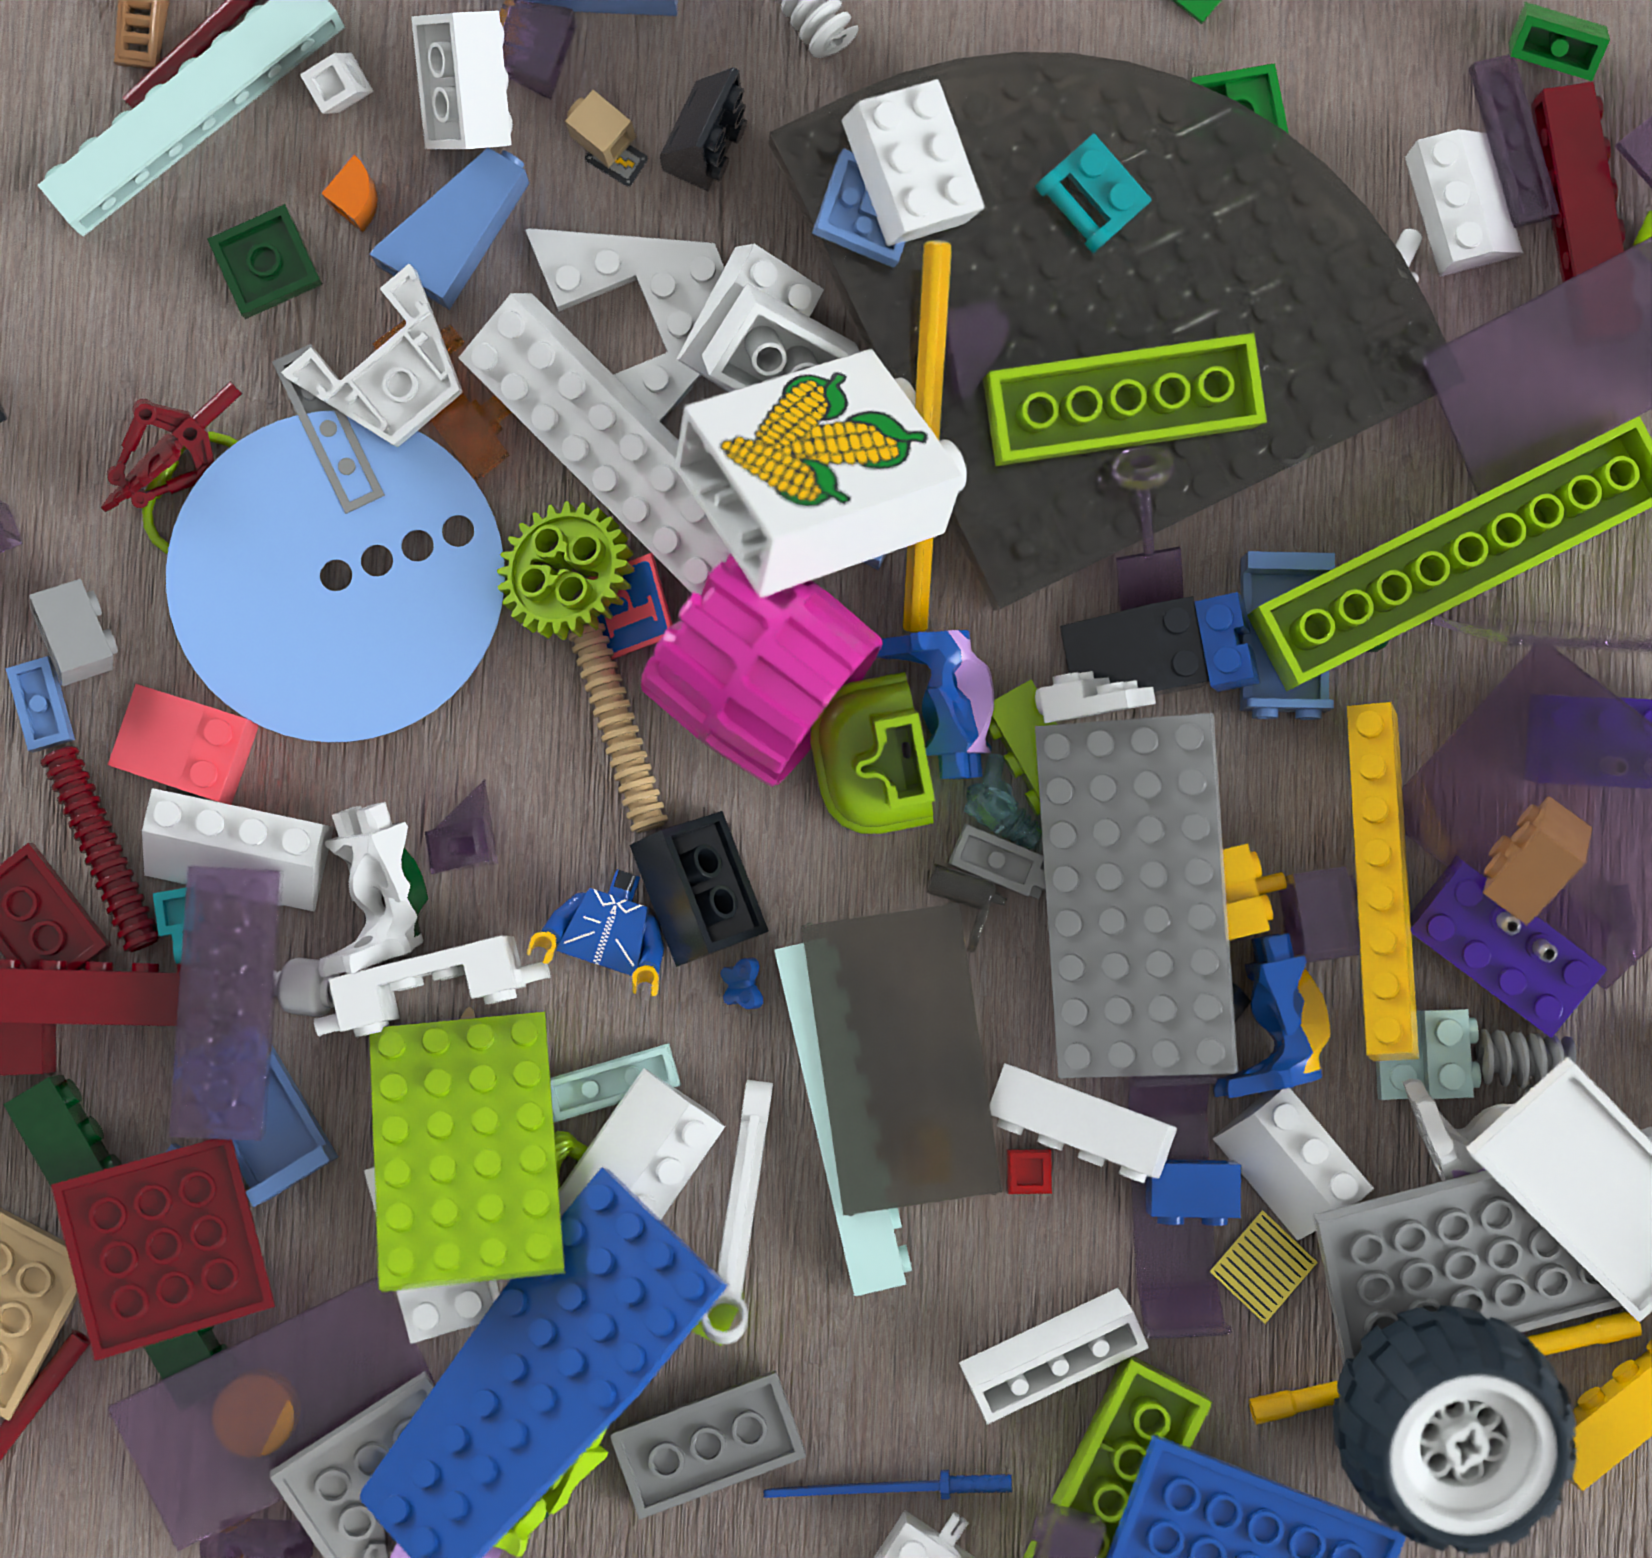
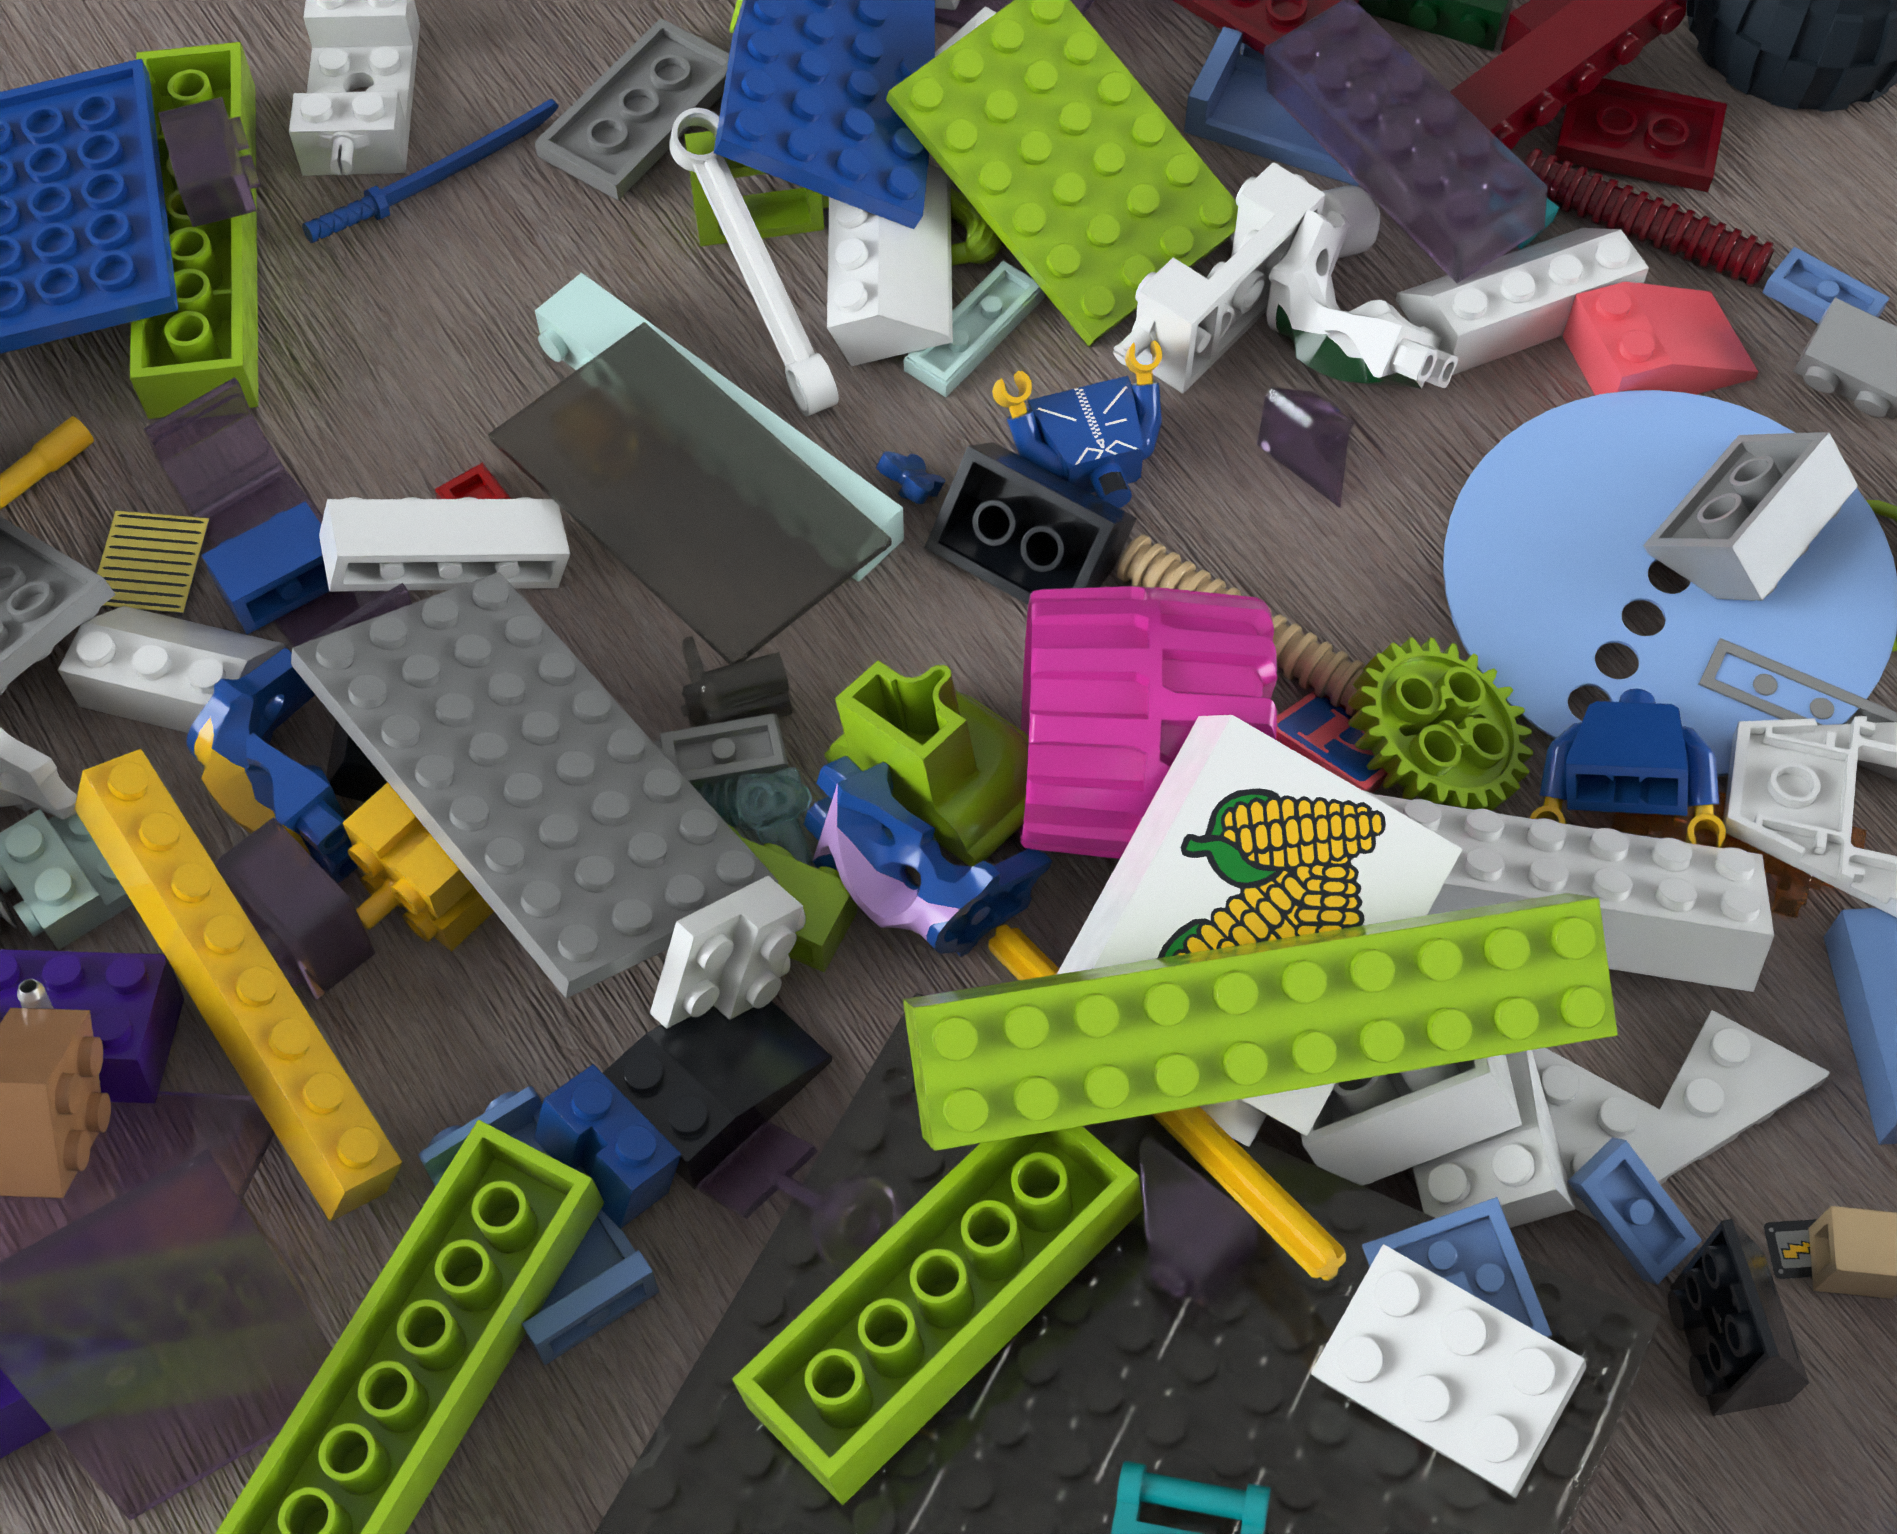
camera: 145 degrees right, 25 degrees down
(258, 567) = (1754, 513): none -> light grey slope
(482, 461) = (1632, 761): none -> blue torso
(703, 227) = (1634, 1210): none -> medium blue plate
(869, 394) = (1258, 1019): none -> lime brick
(1053, 1355) = (334, 344): white brick -> none

